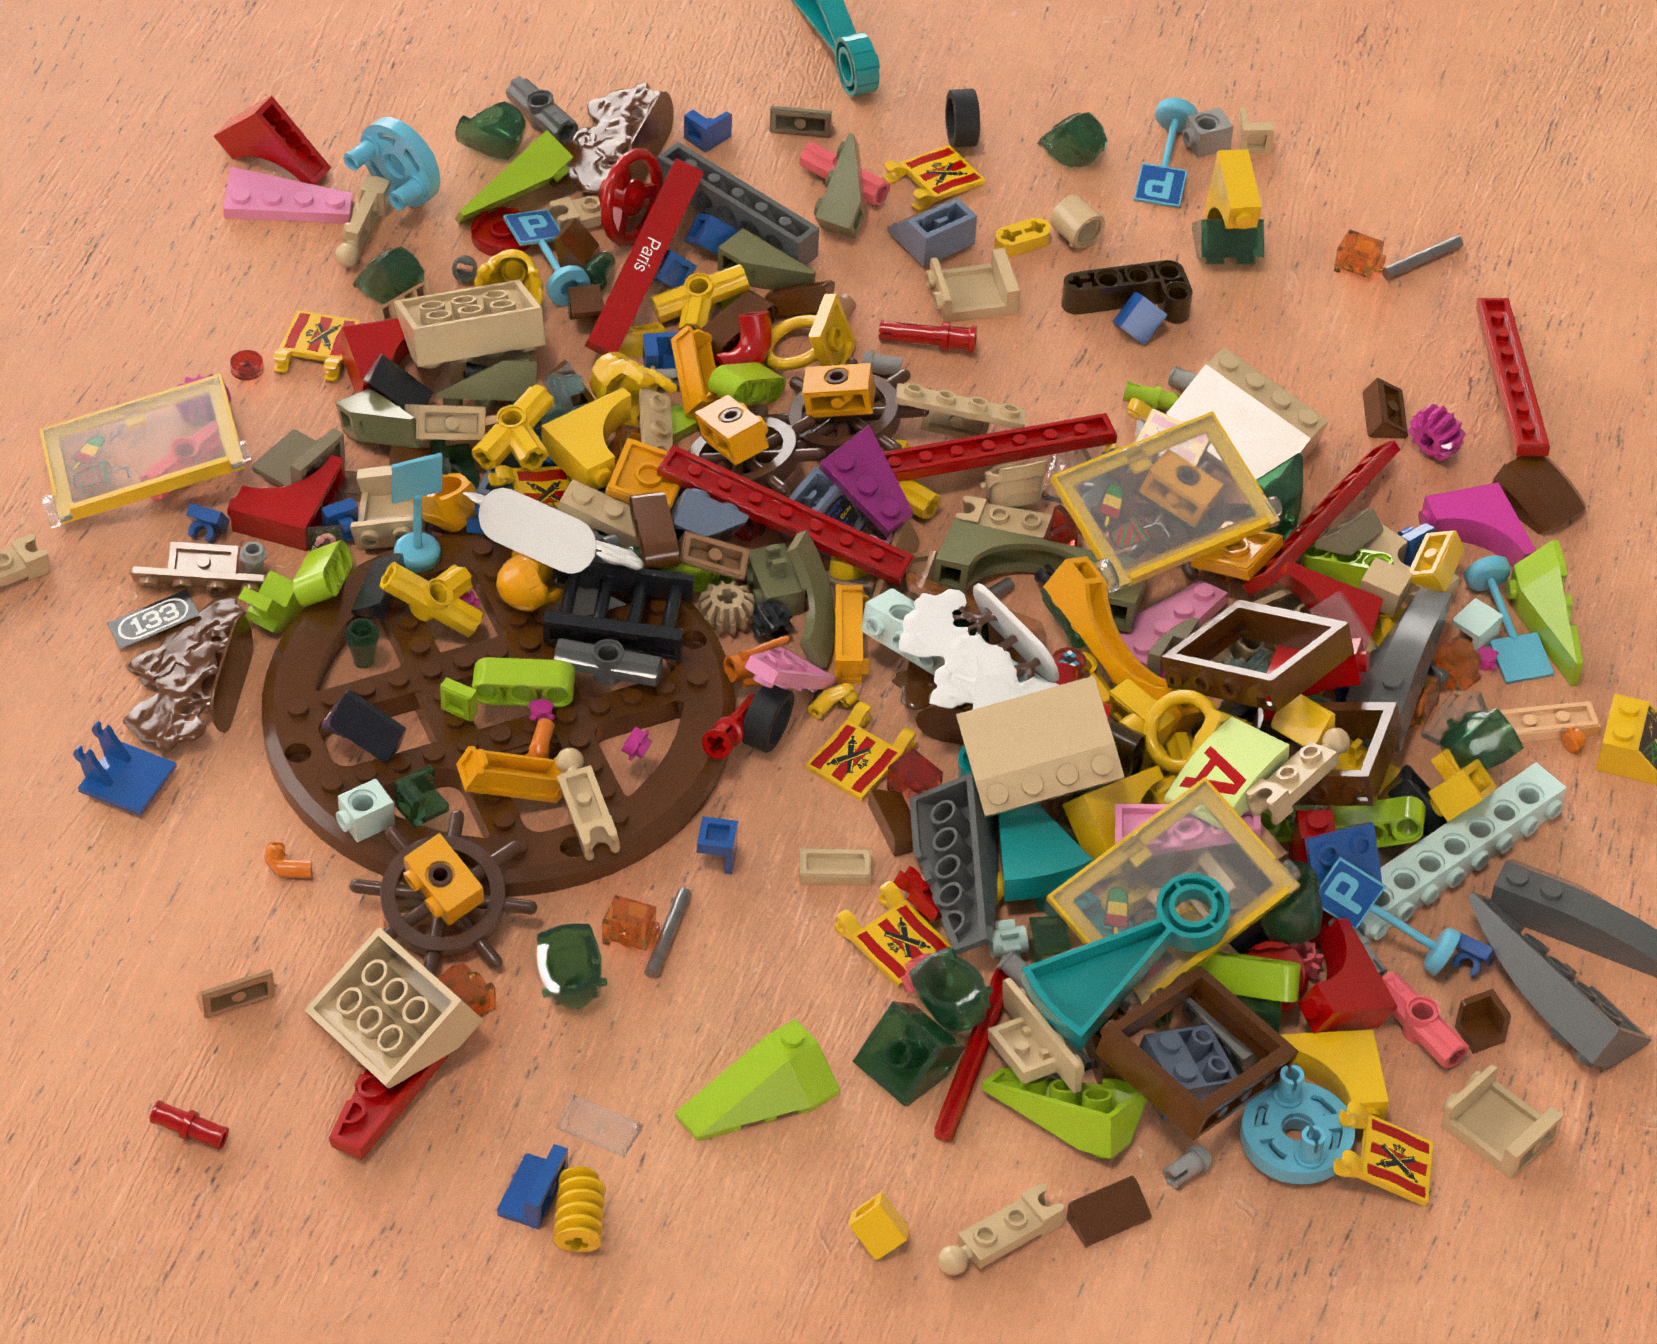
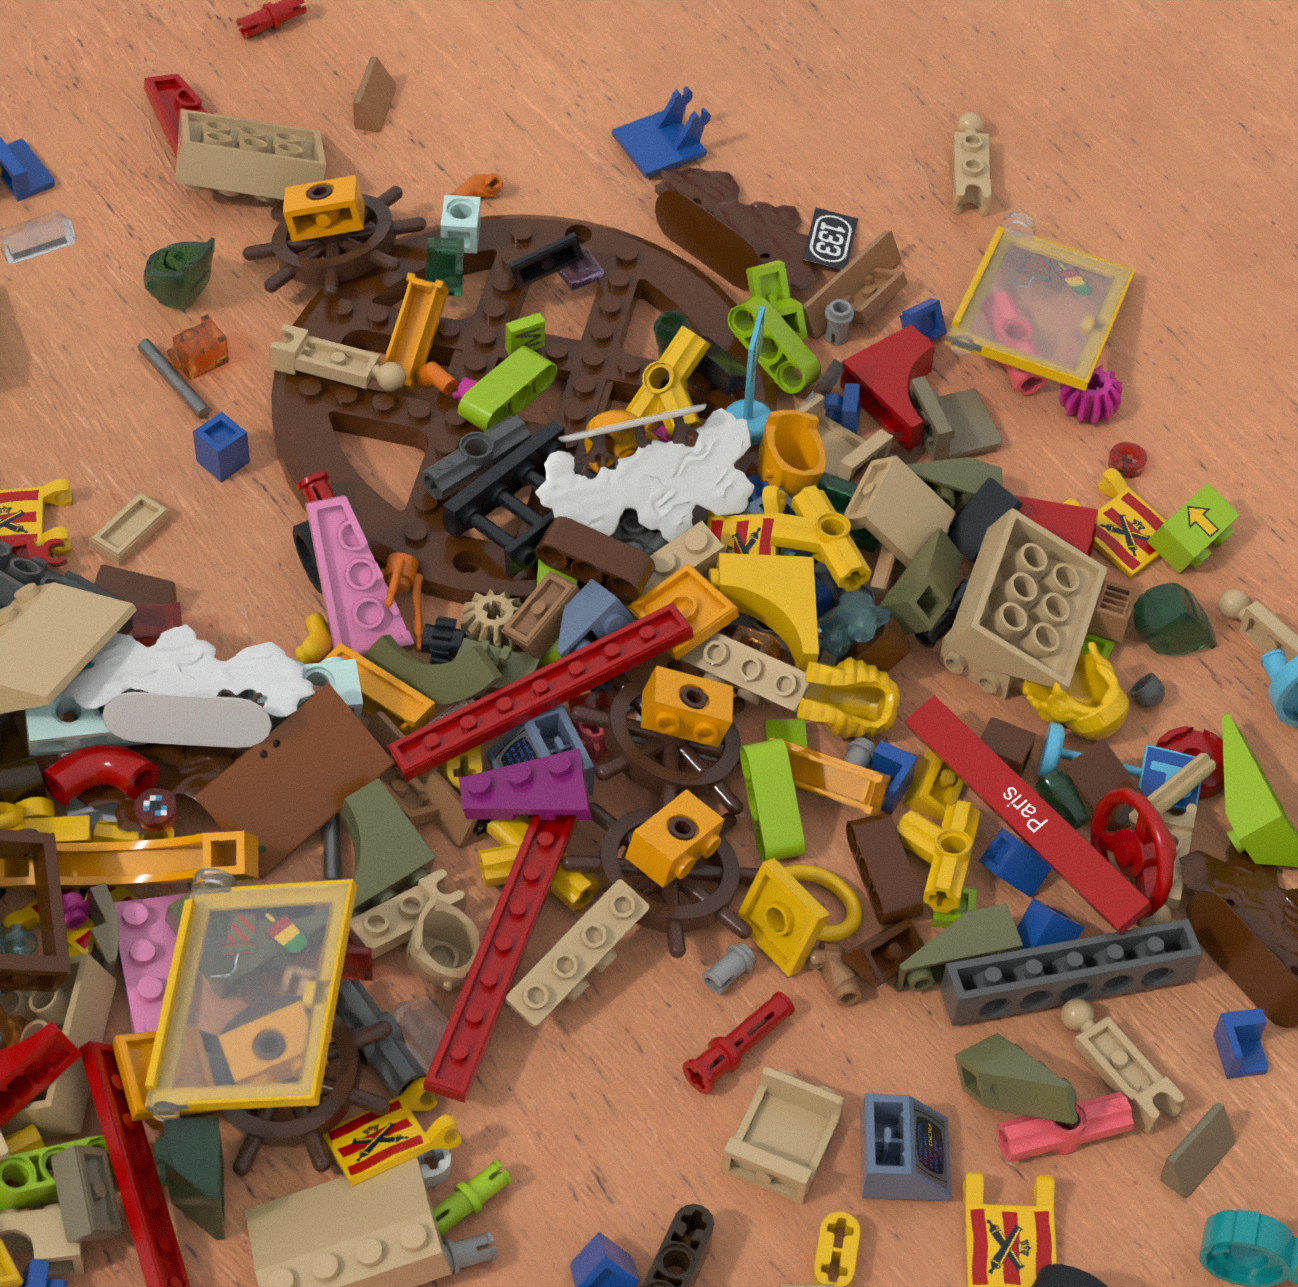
camera: 125 degrees right, 5 degrees up
(296, 294) = (1193, 528): none -> lime brick
(470, 988) = (234, 214): clear orange brick -> none
(554, 208) = (1179, 784): none -> tan axle
(637, 743) = (368, 432): dark pink plate -> none
(753, 341) = (828, 843): red cylinder -> none
(778, 164) = (1122, 1065): none -> tan plate
(856, 758) = (234, 615): yellow flag -> none

